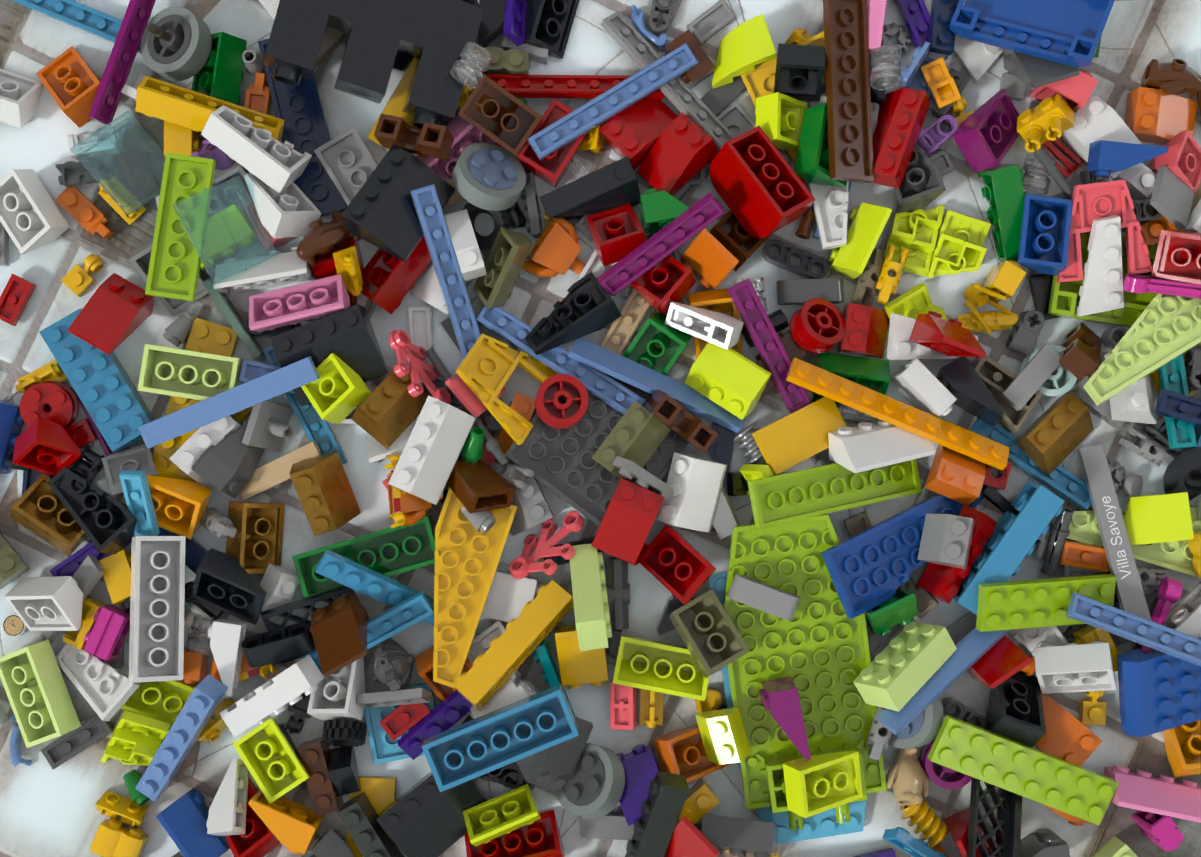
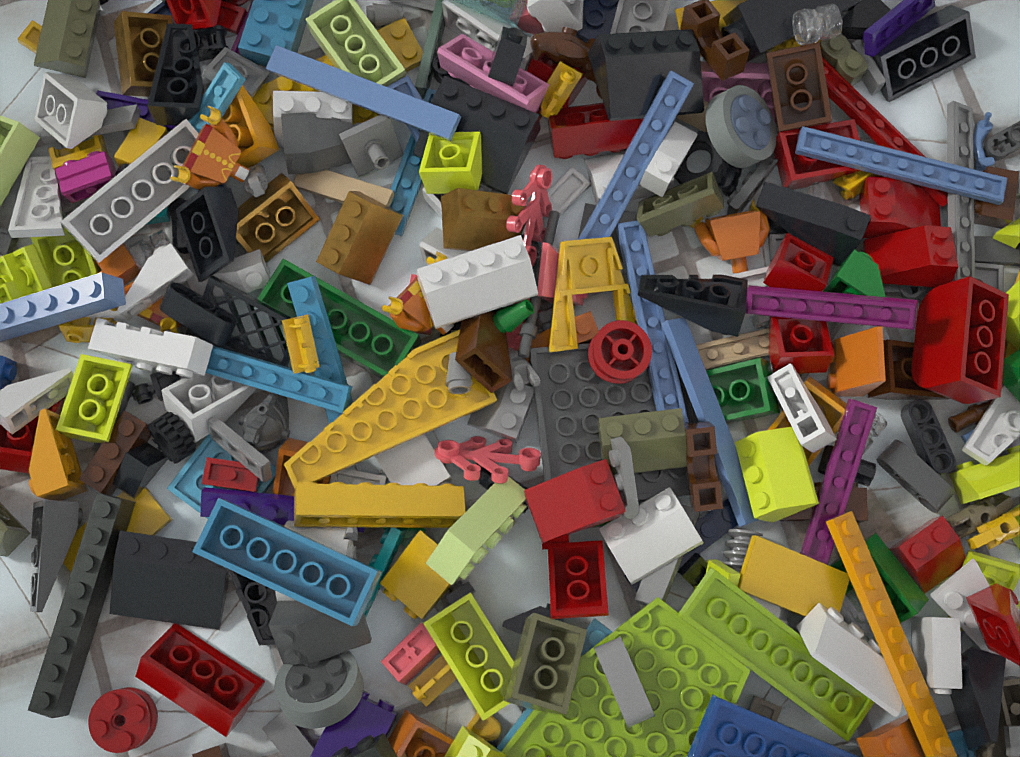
camera: 55 degrees right, 10 degrees down
(13, 625) = (27, 105): tile -> none
(179, 542) = (212, 156): none -> orange torso
(297, 286) = (508, 55): none -> black slope
(339, 633) = (251, 350): reddish brown slope -> none
(364, 599) = (300, 344): none -> yellow hinge
(501, 815) = (218, 637): neon yellow slope -> none
(618, 593) = (503, 557): dark grey piece -> none
(817, 326) = (895, 507): red wheel -> none

